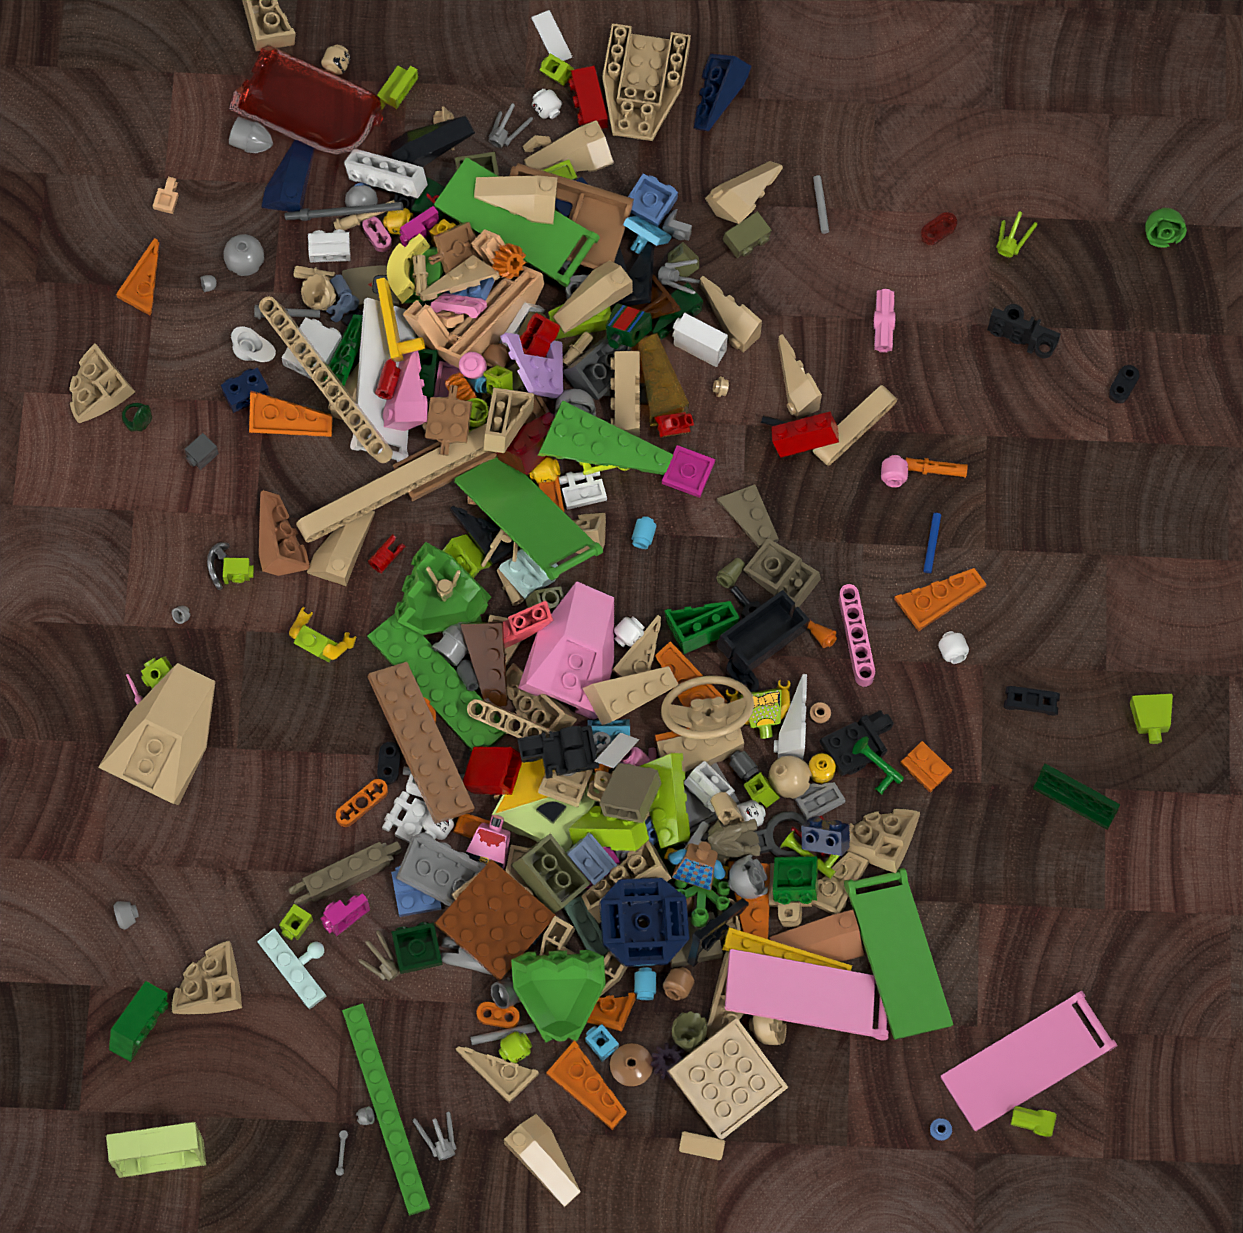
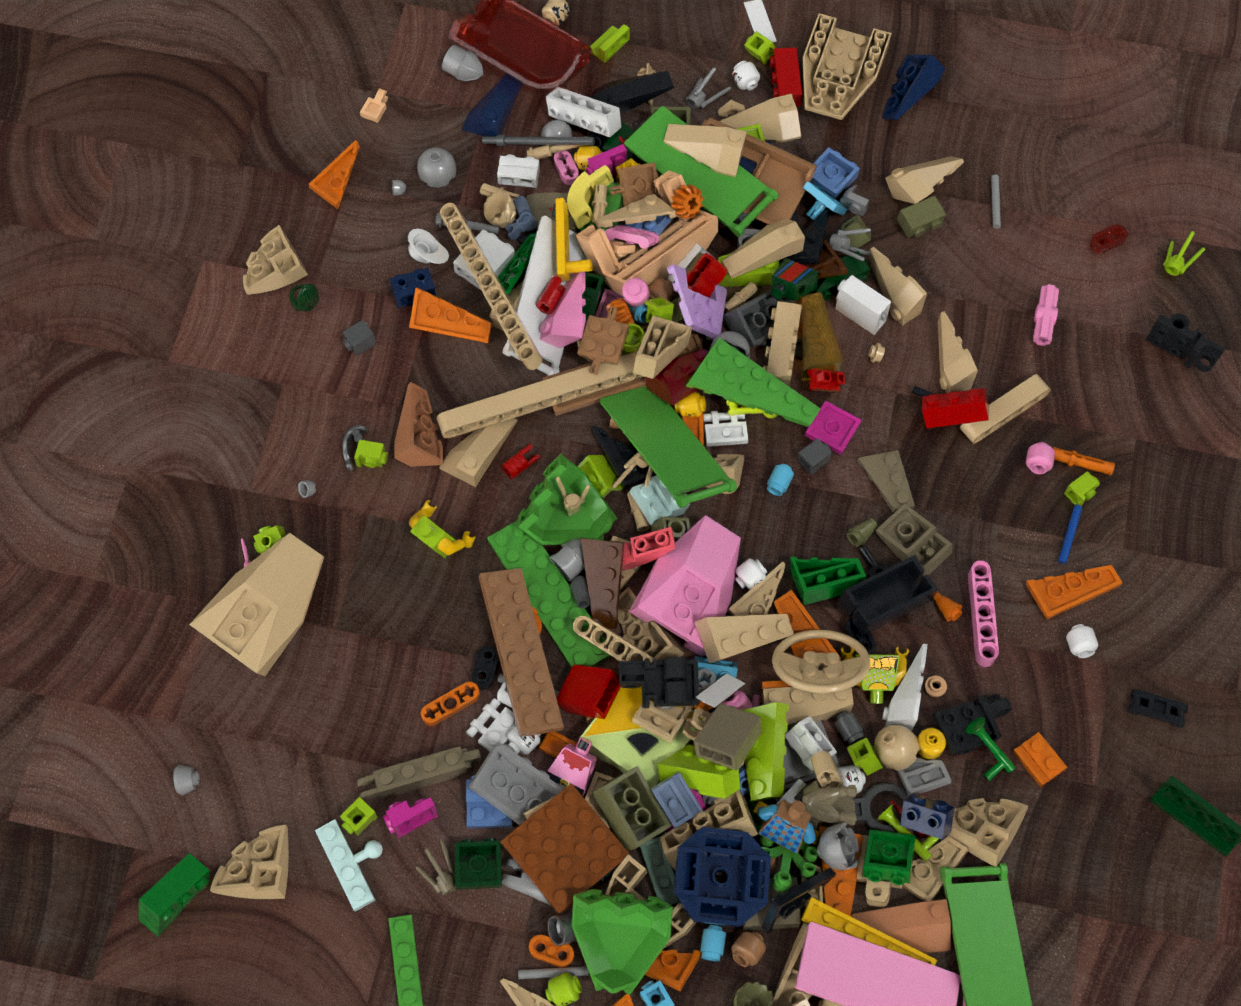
camera: 10 degrees right, 5 degrees down
(674, 503) = (814, 456): none -> dark grey brick
(939, 495) = (1082, 489): none -> lime brick

